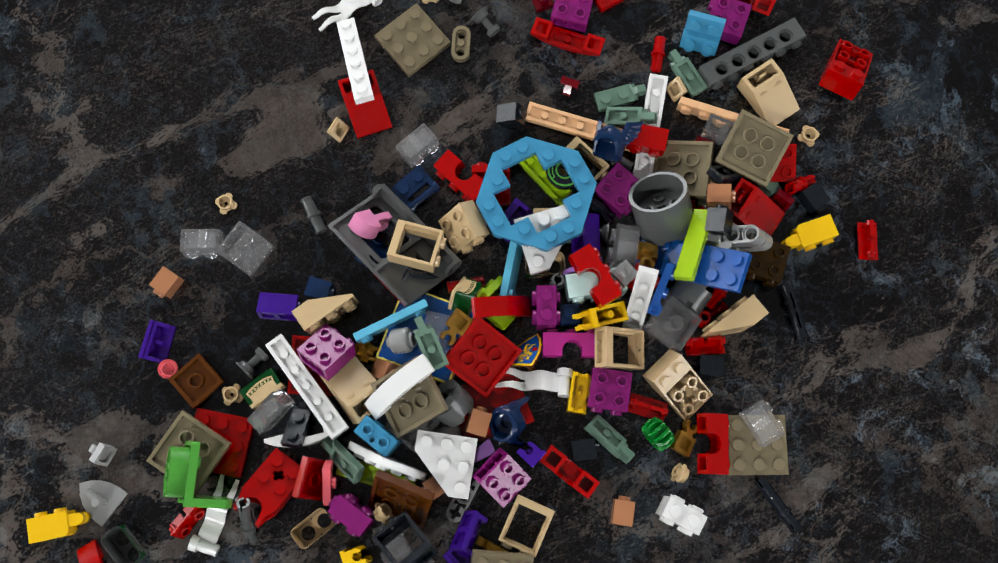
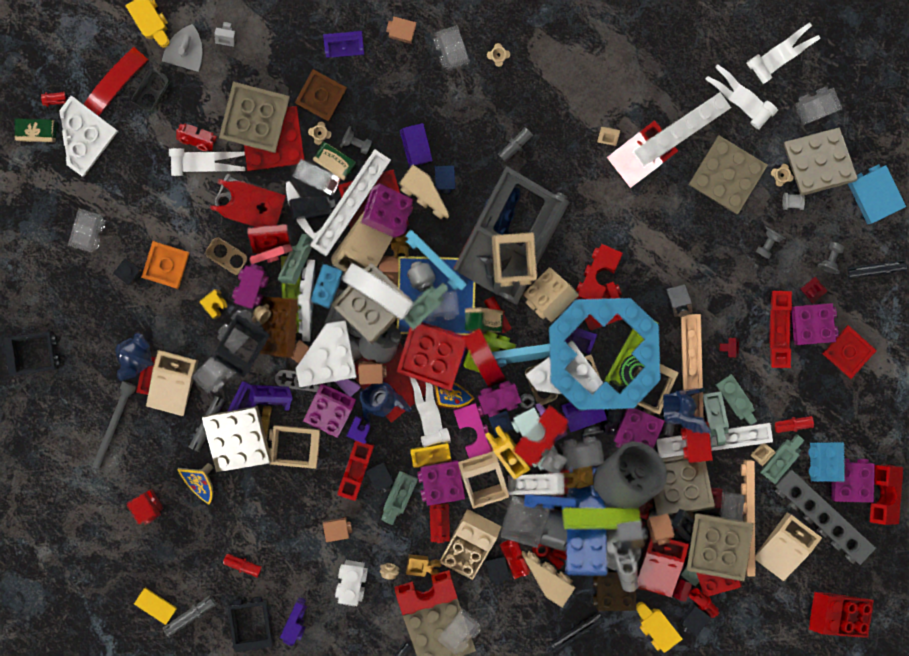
camera: 70 degrees right, 10 degrees up
(167, 368) = (322, 63): coral plate -> none
(181, 478) = (232, 127): bright green piece -> none
(245, 248) = (459, 93): clear brick -> none
(247, 522) = (209, 196): dark grey pin -> none
(367, 224) = (521, 203): bright pink brick -> none
(412, 184) = (579, 228): dark blue plate -> none
(418, 145) = (618, 220): clear brick -> none
(458, 324) = (452, 324): pearl gold plate -> none
(461, 45) = (738, 225): dark tan plate -> none
(658, 434) = (417, 539): green gear -> none
(807, 130) = (762, 602): tan plate -> none

